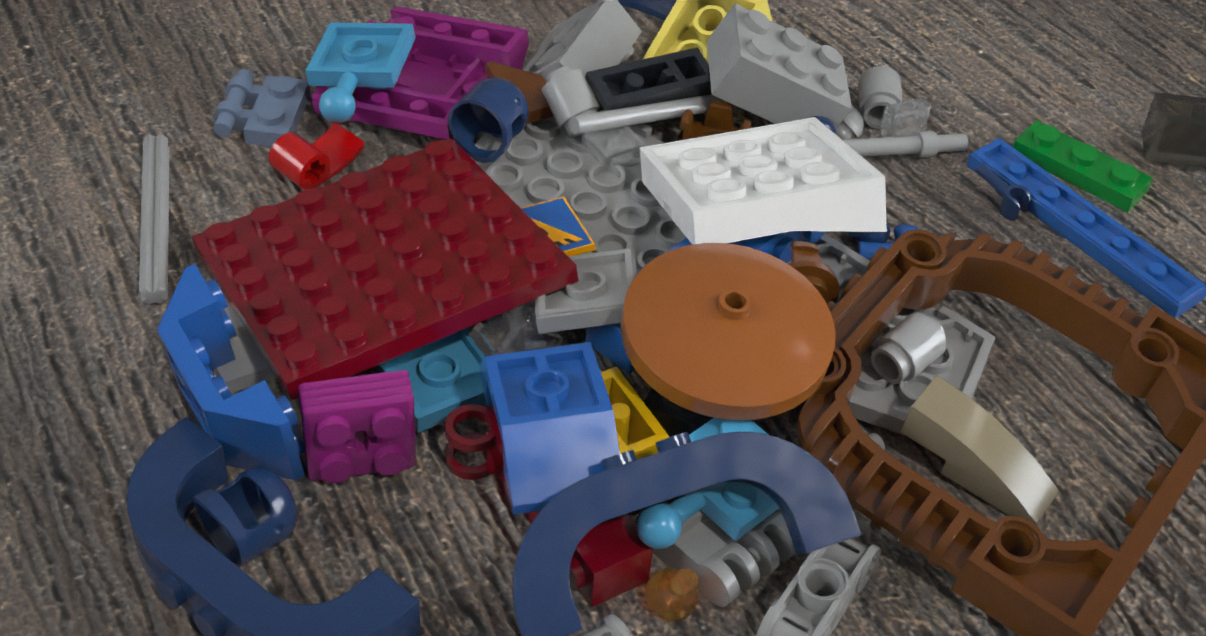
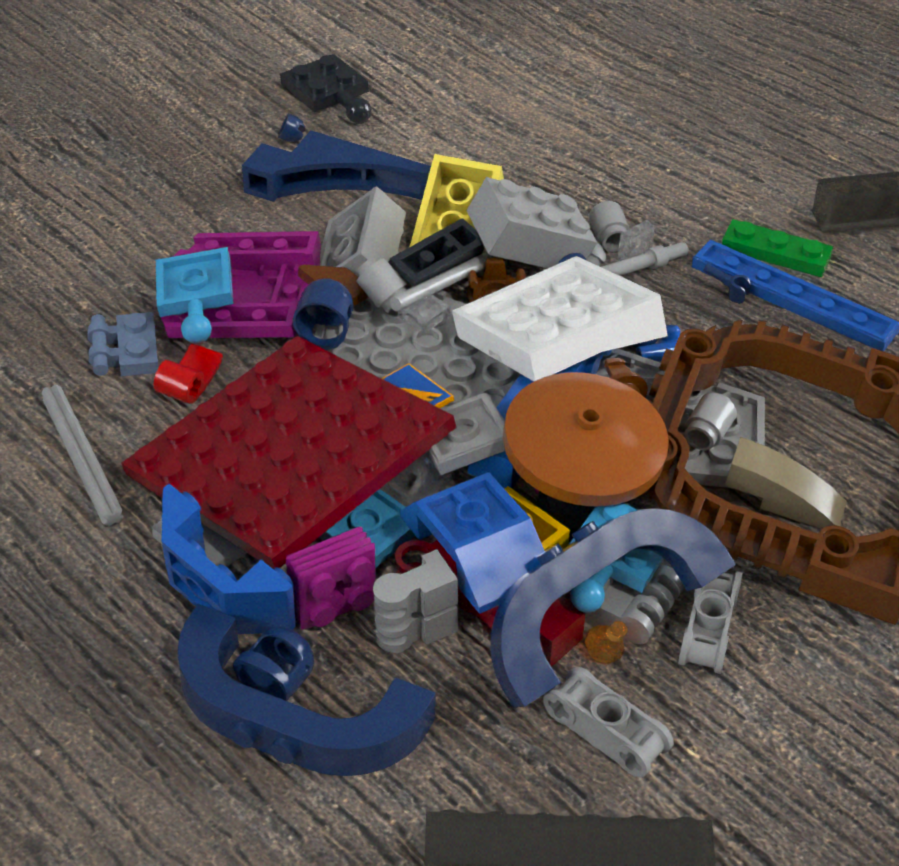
camera: 15 degrees left, 0 degrees up
(443, 484) = (416, 604): none -> light grey legs

